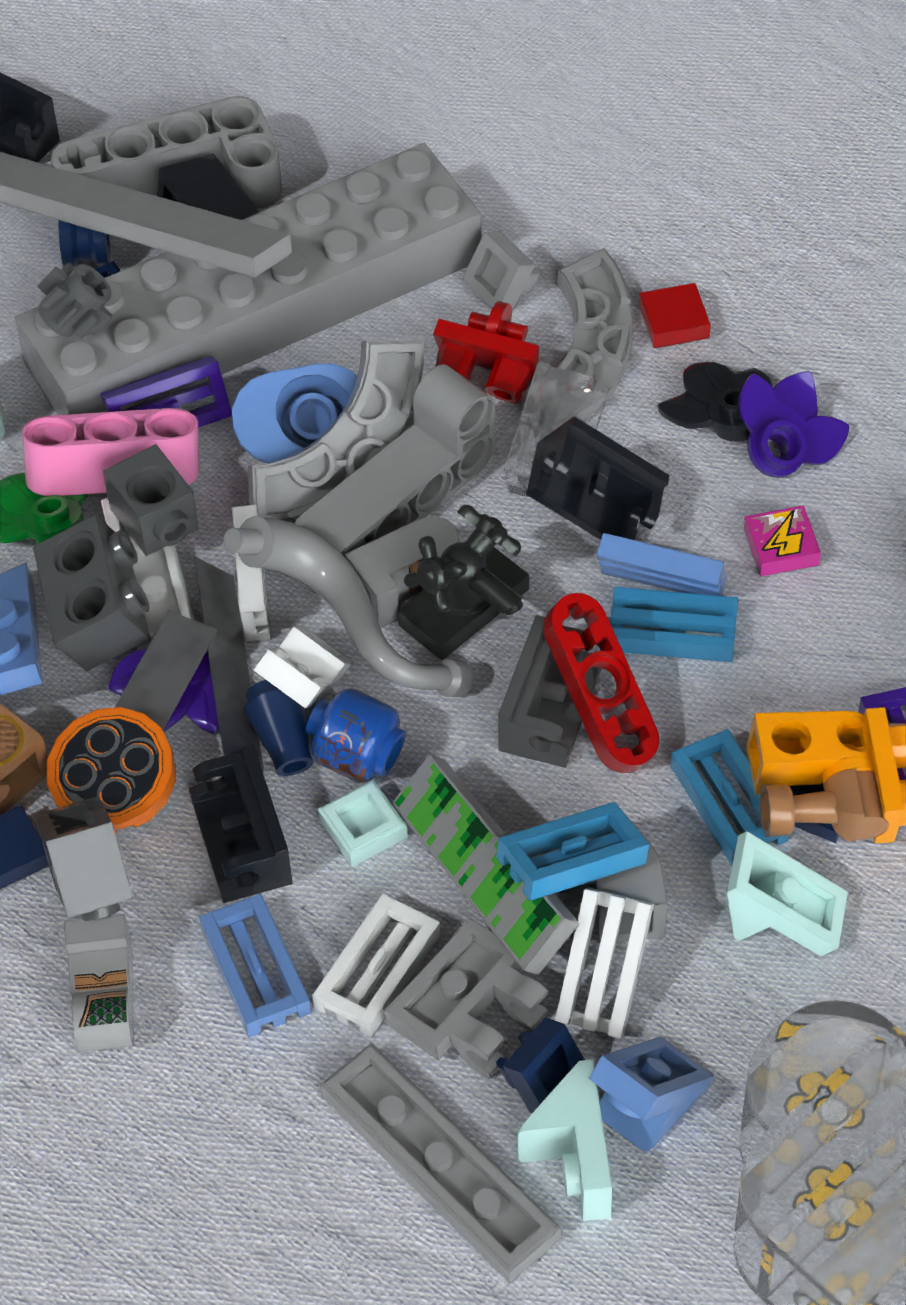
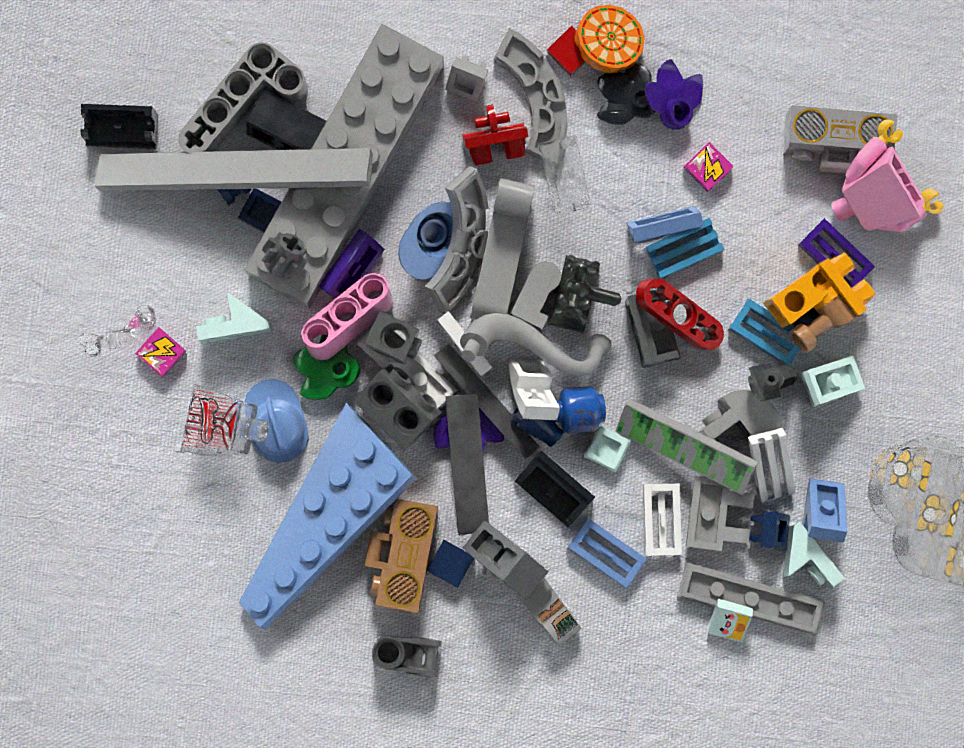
camera: 40 degrees left, 30 degrees up
(117, 758) = (474, 494): tile -> none
(378, 1164) = (730, 620): none -> light aqua tile
(578, 859) = (720, 452): dark azure tile -> none
(595, 481) = (608, 198): black hinge -> none
(682, 835) = (768, 381): none -> dark grey hinge
(739, 318) = (609, 38): none -> orange tile

